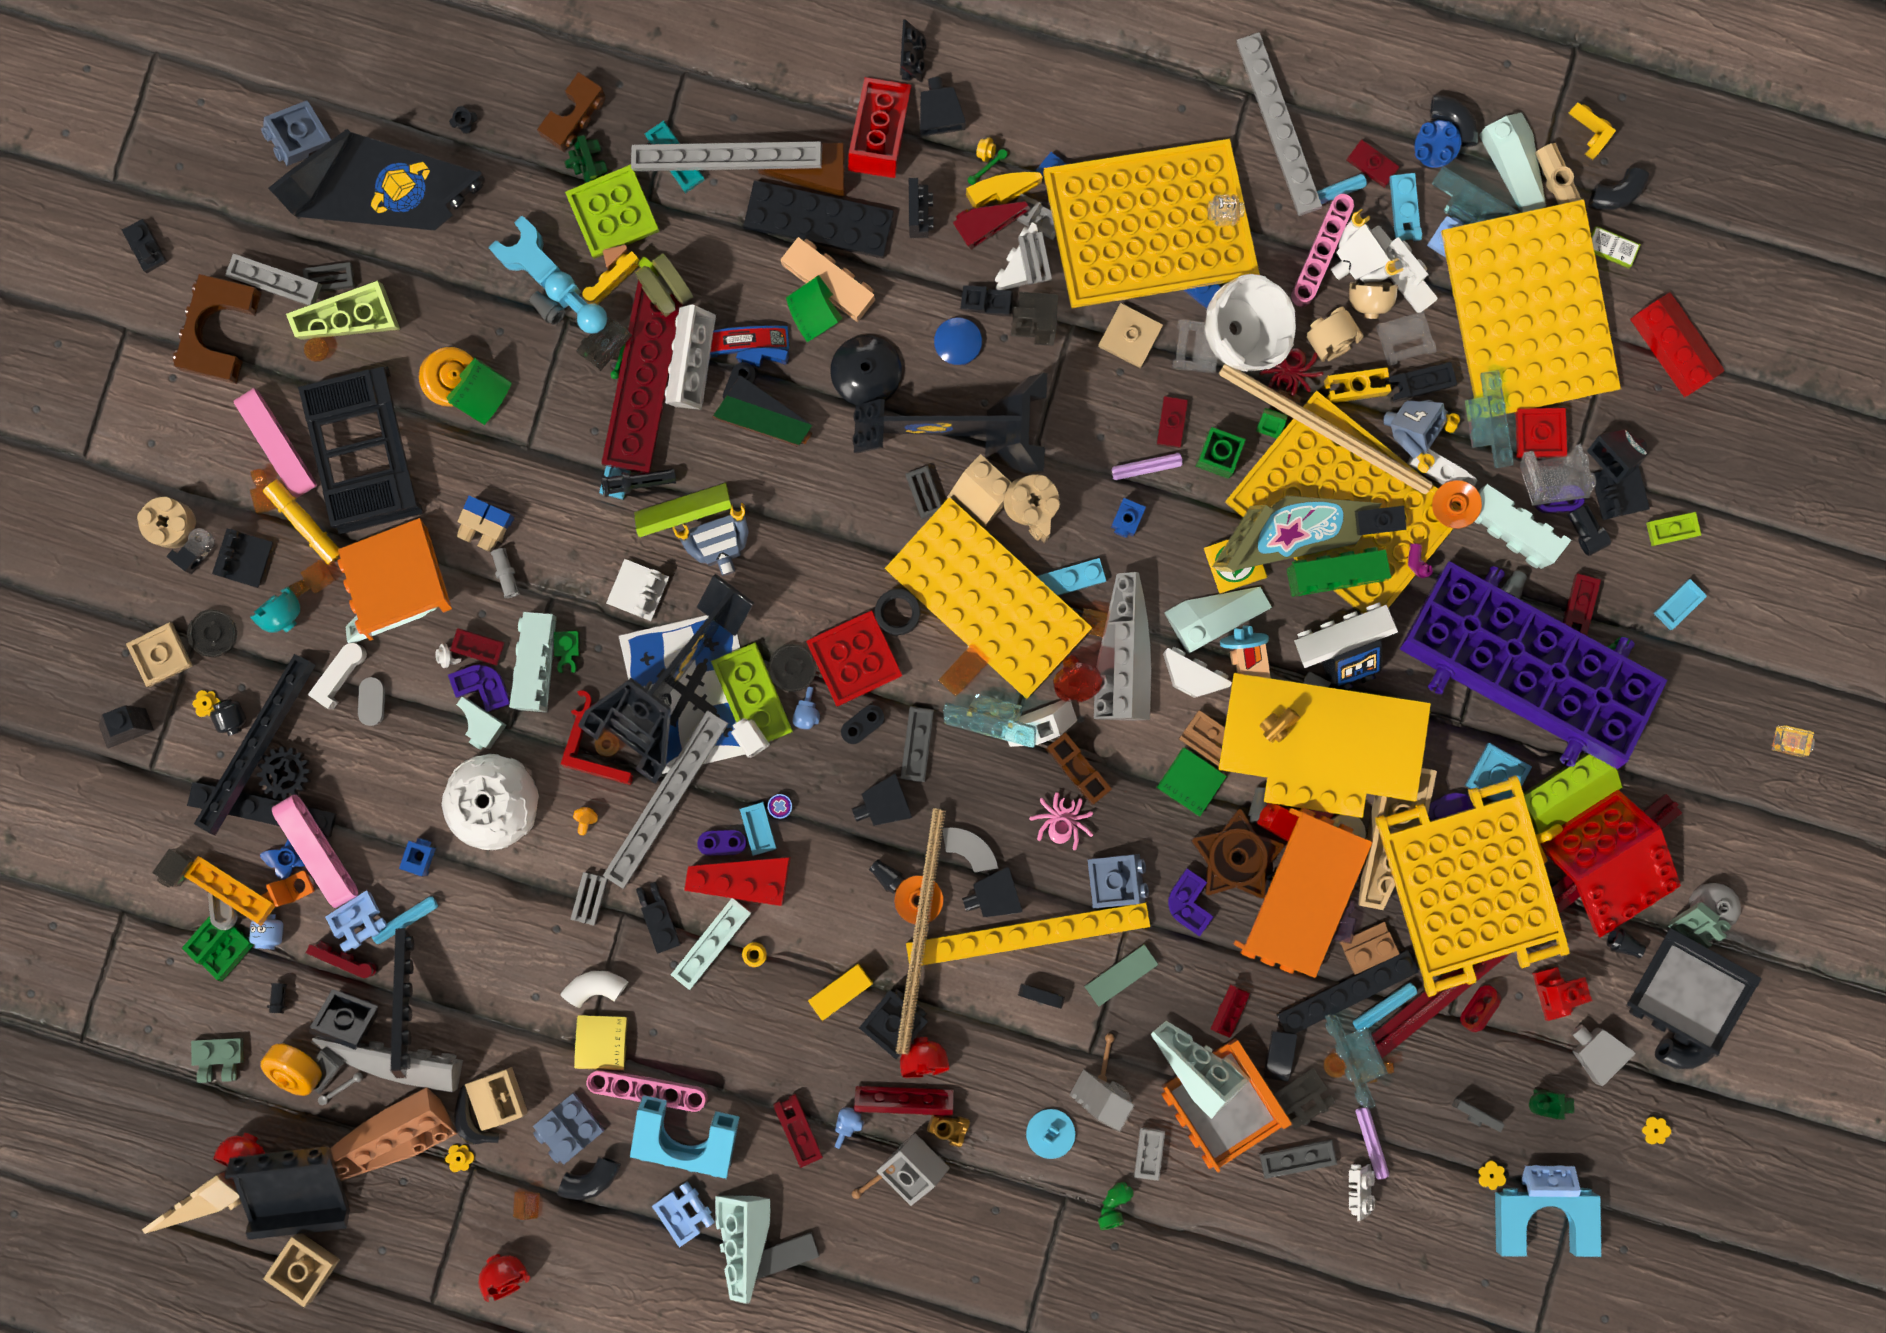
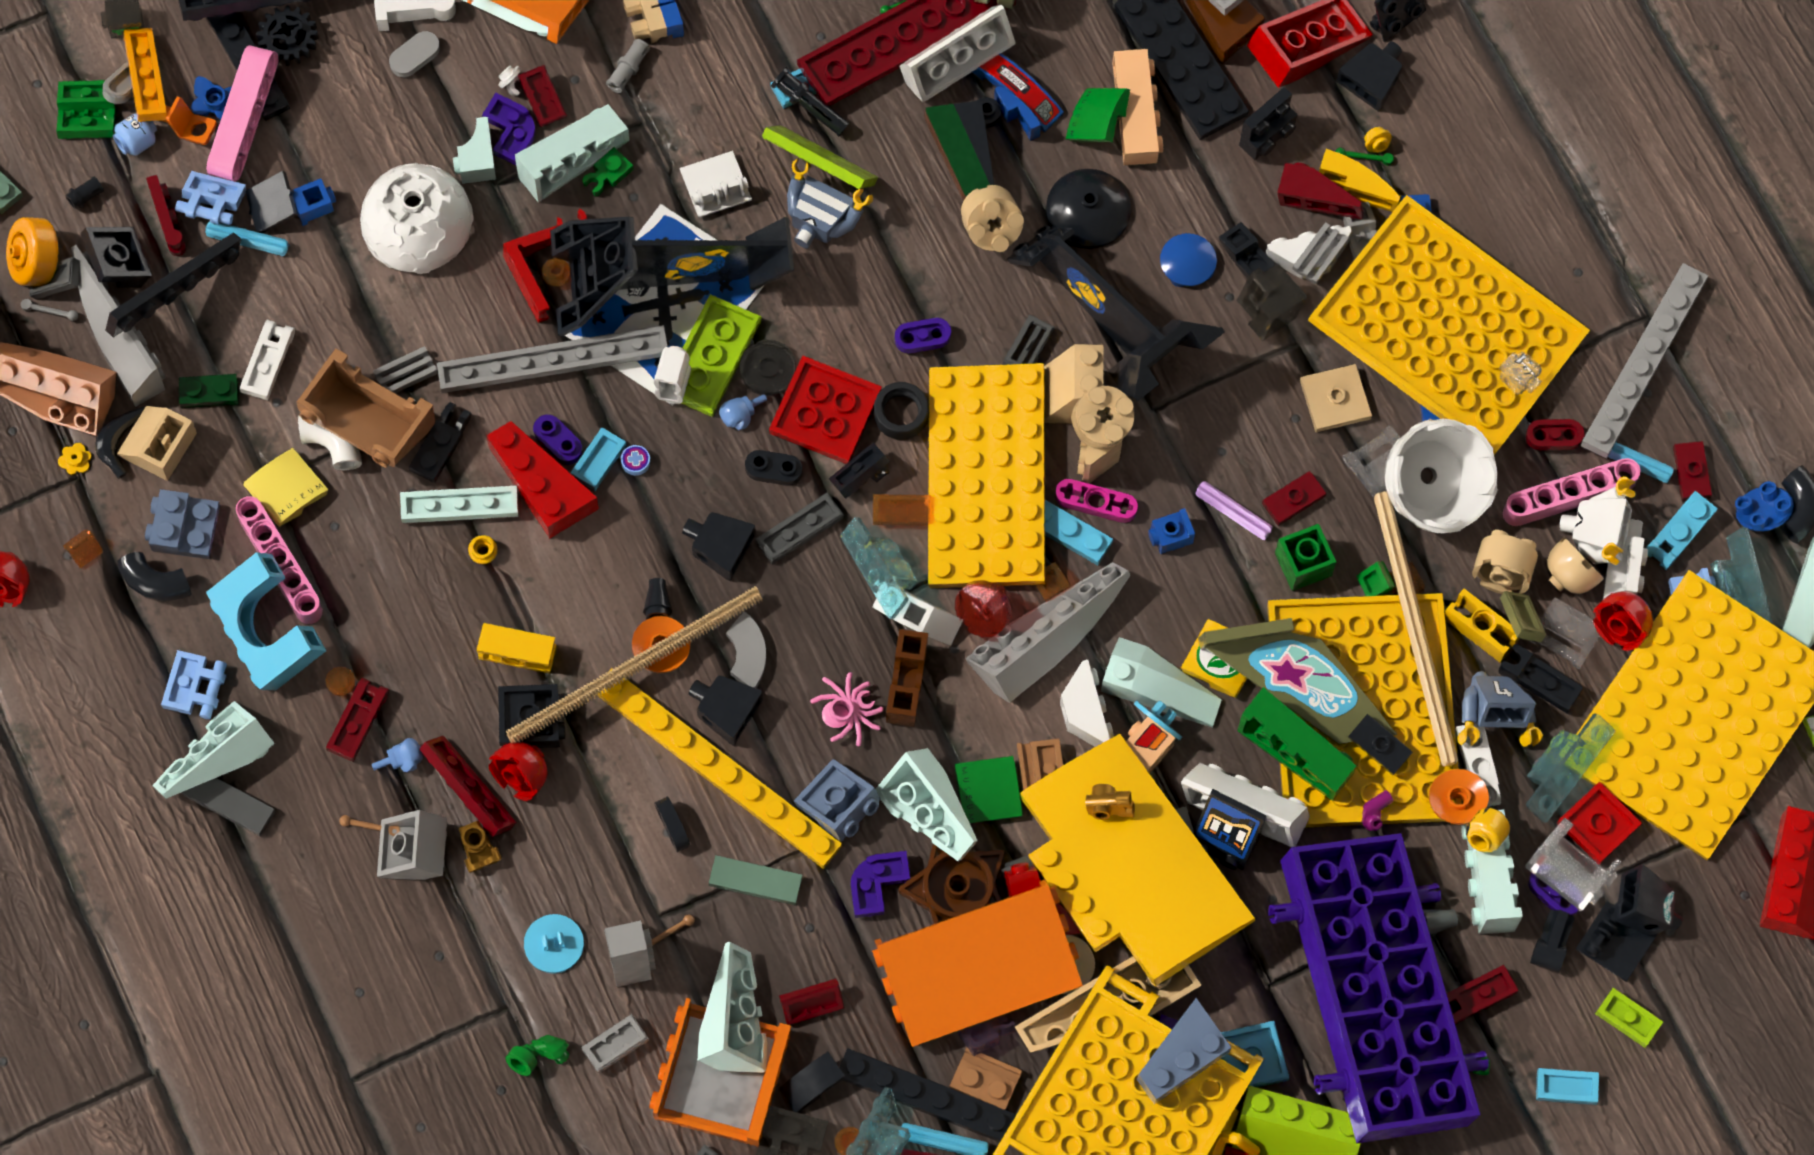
camera: 45 degrees right, 15 degrees down
(395, 885) = (271, 202): none -> piece
(489, 1034) = (208, 391): none -> dark green plate
(502, 980) = (266, 360): none -> white plate
(585, 817) = (474, 307): light orange plate -> none
(599, 954) = (364, 411): none -> medium nougat windscreen
(762, 1119) = (340, 681): none -> clear orange plate
(824, 440) = (992, 218): none -> tan brick
(859, 553) = (921, 333): none -> dark purple plate
(915, 674) = (854, 474): none -> black hinge
(1046, 549) = (1078, 487): none -> dark pink beam
(1167, 827) = (925, 798): none -> light aqua wedge
(1275, 225) = (1553, 433): none -> dark red plate
(1292, 369) = (1442, 555): dark red animal -> none
(1376, 356) = (1522, 616): none -> olive tile
(1436, 297) = (1623, 620): none -> red cylinder
(1478, 827) = (1184, 1053): none -> sand blue wedge
(1497, 509) = (1487, 830): none -> yellow head

